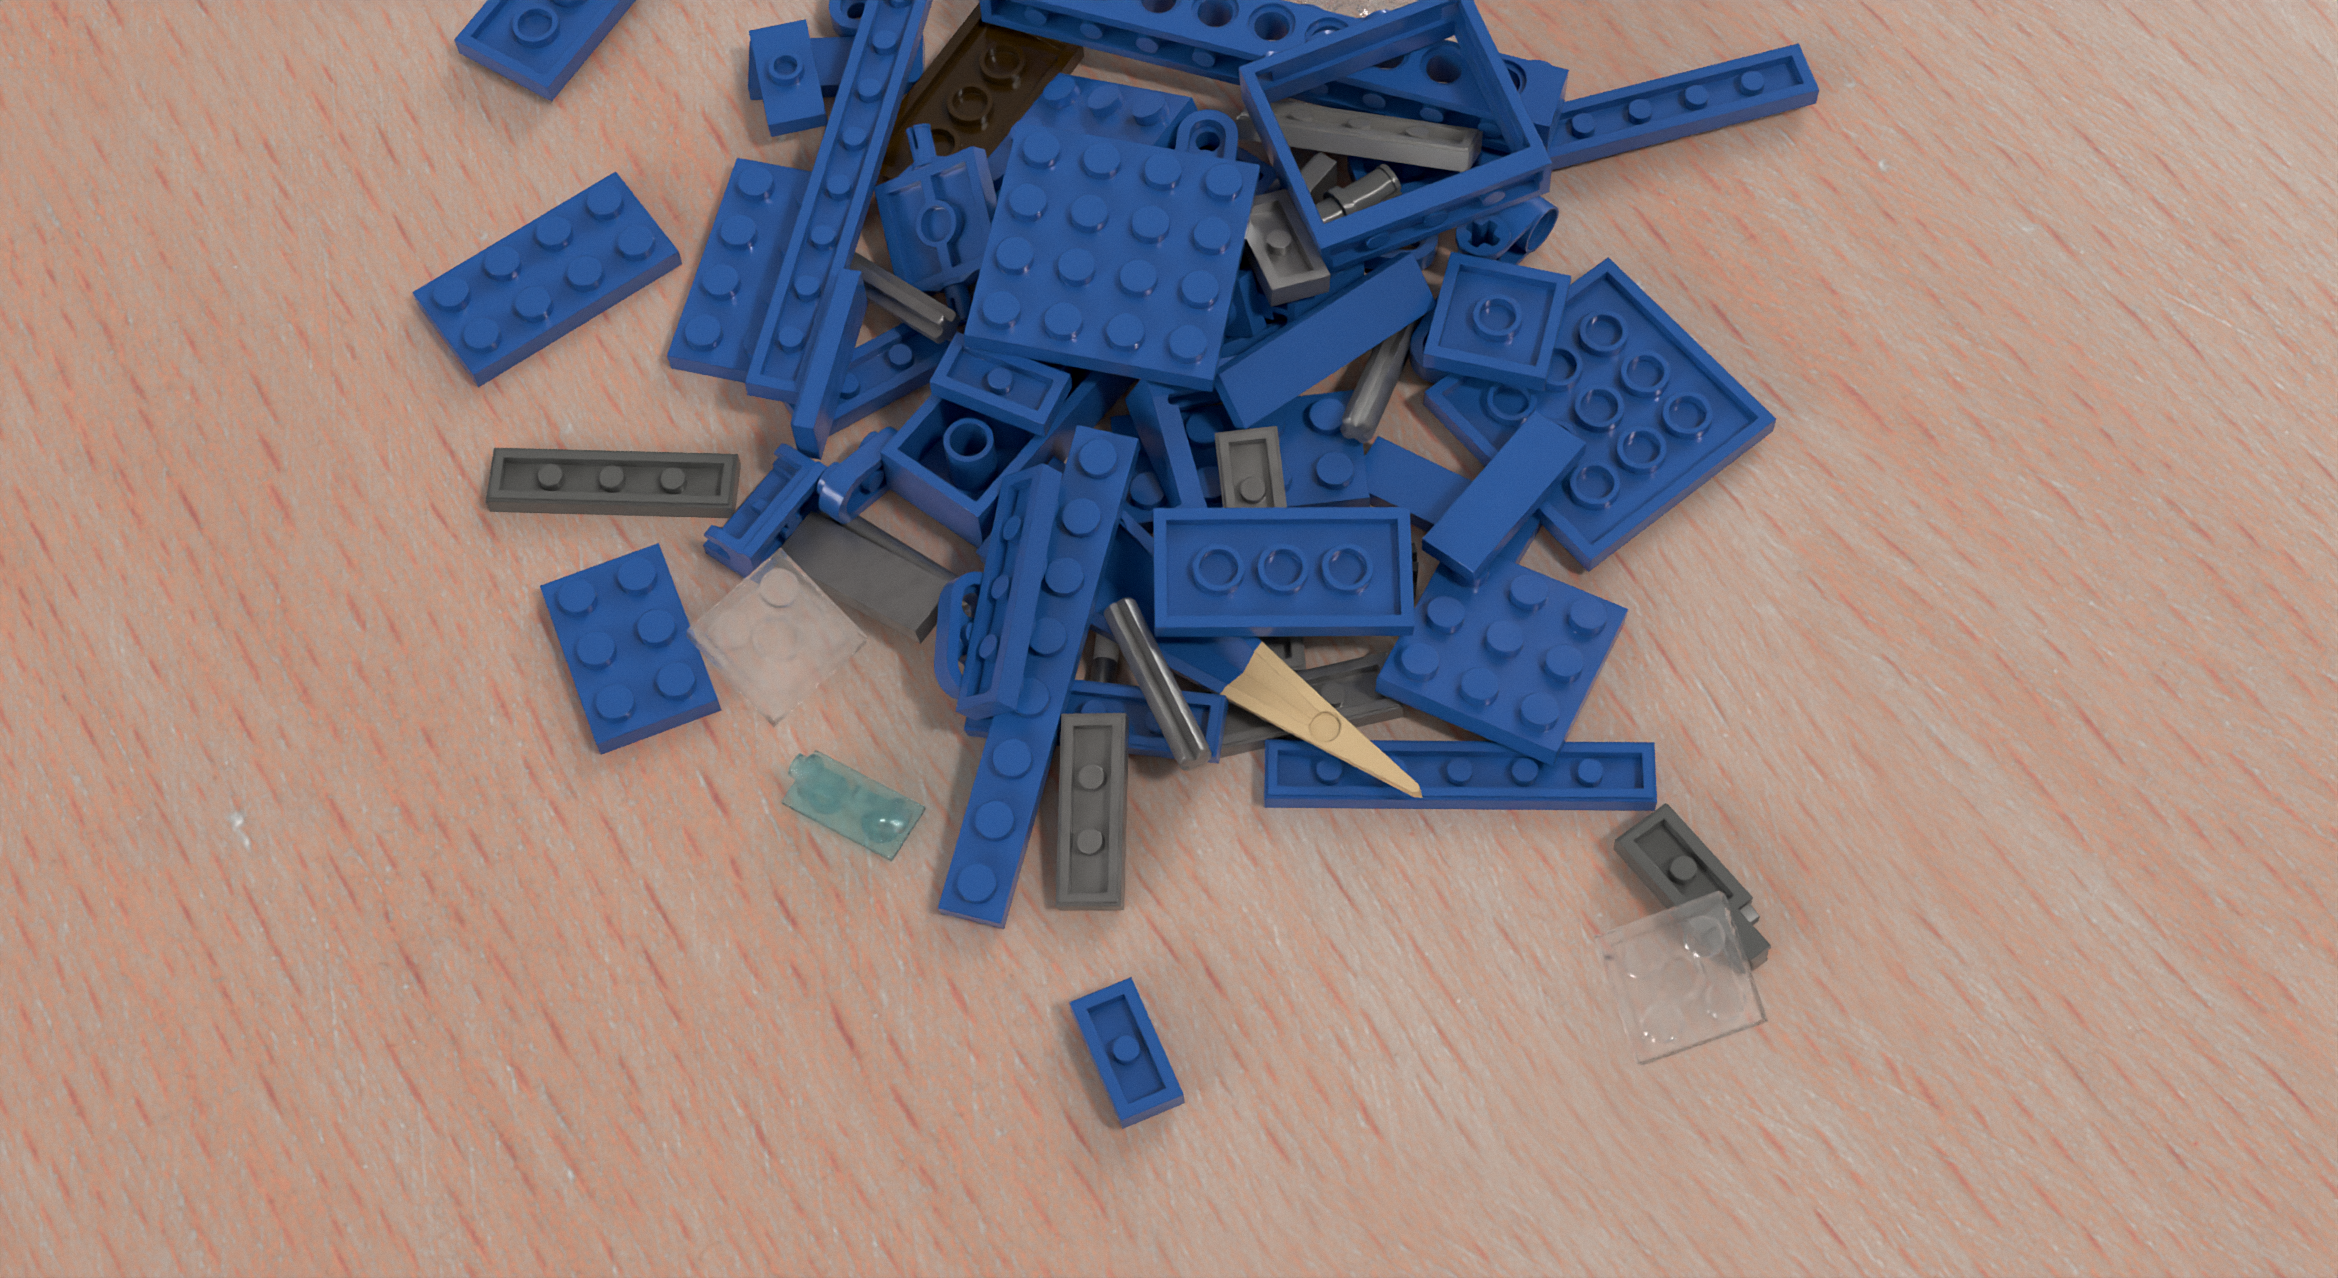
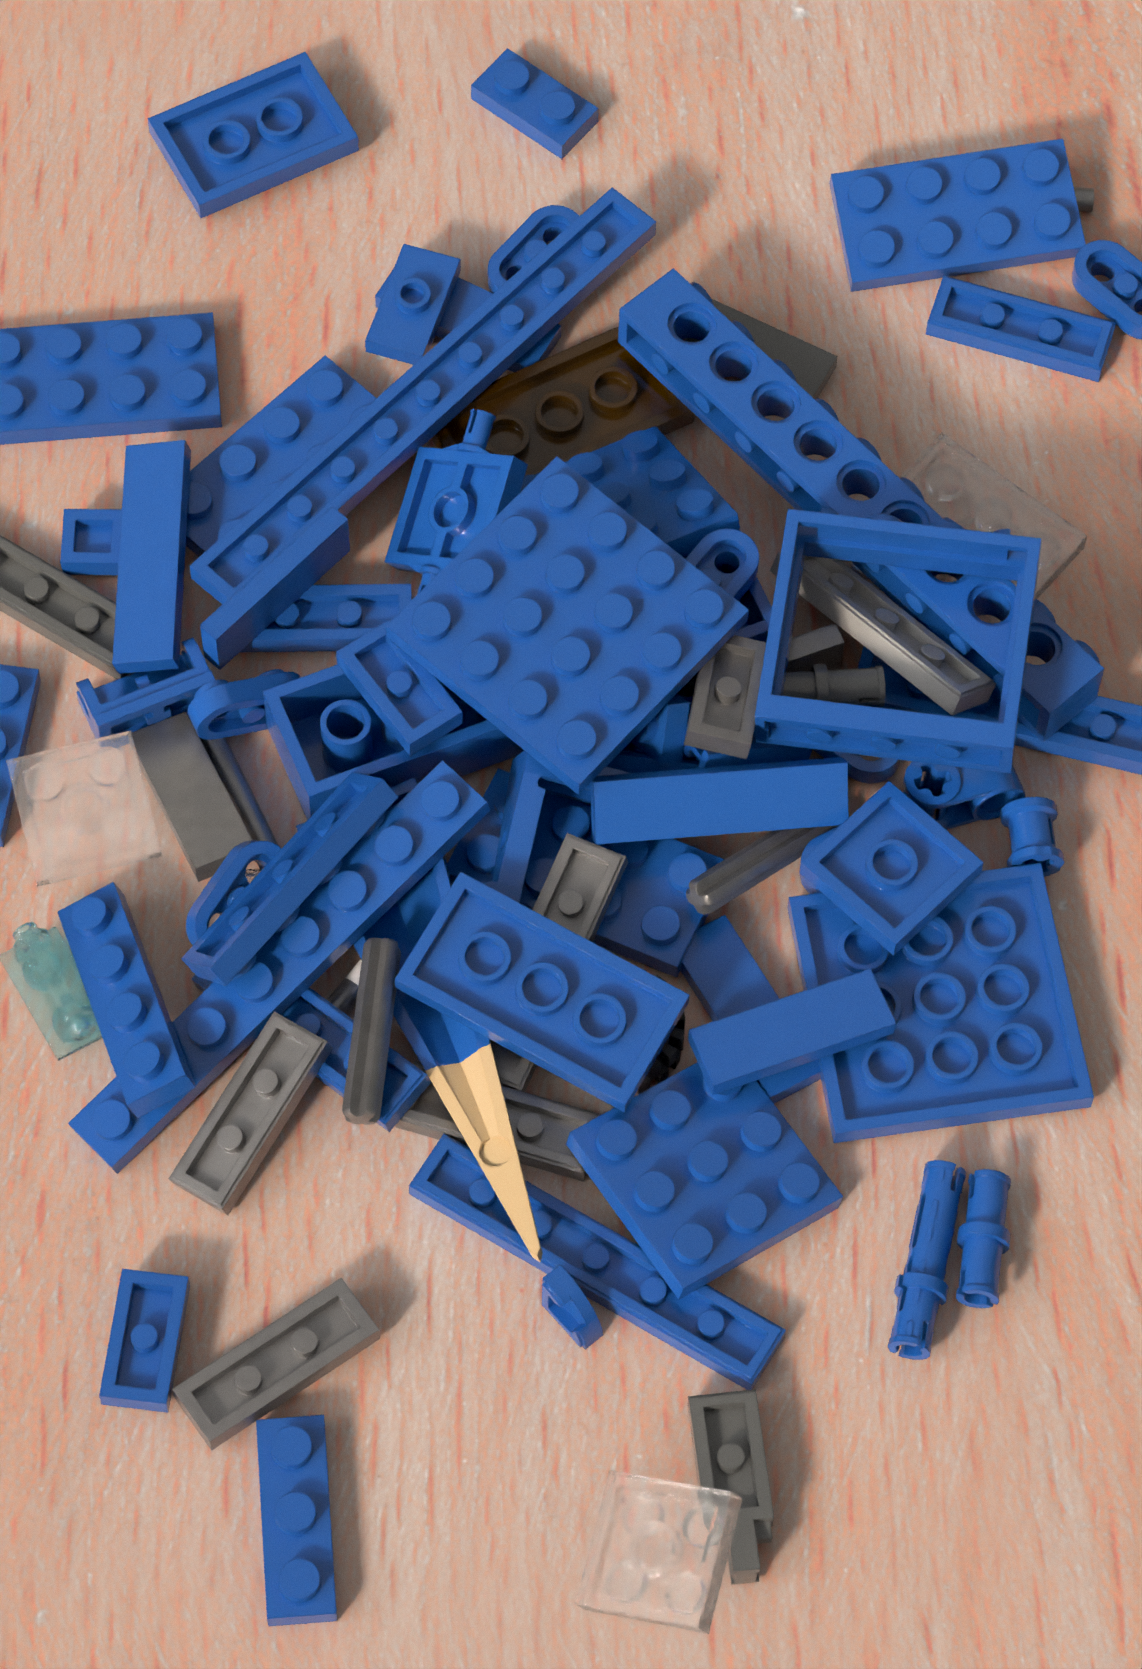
camera: 25 degrees right, 0 degrees up
(637, 411) = (91, 541): none -> blue plate
(701, 396) = (152, 557): none -> blue tile
(906, 302) = (377, 560): flat silver axle -> none
(925, 774) = (126, 1000): none -> blue plate
(1252, 1009) = (276, 1363): none -> flat silver plate
(1354, 1130) = (296, 1520): none -> blue plate
(1467, 822) = (570, 1307): none -> blue tile
(1583, 238) = (1032, 833): none -> blue bush
(1739, 644) = (923, 1283): none -> blue pin
(1763, 580) = (983, 1238): none -> blue pin

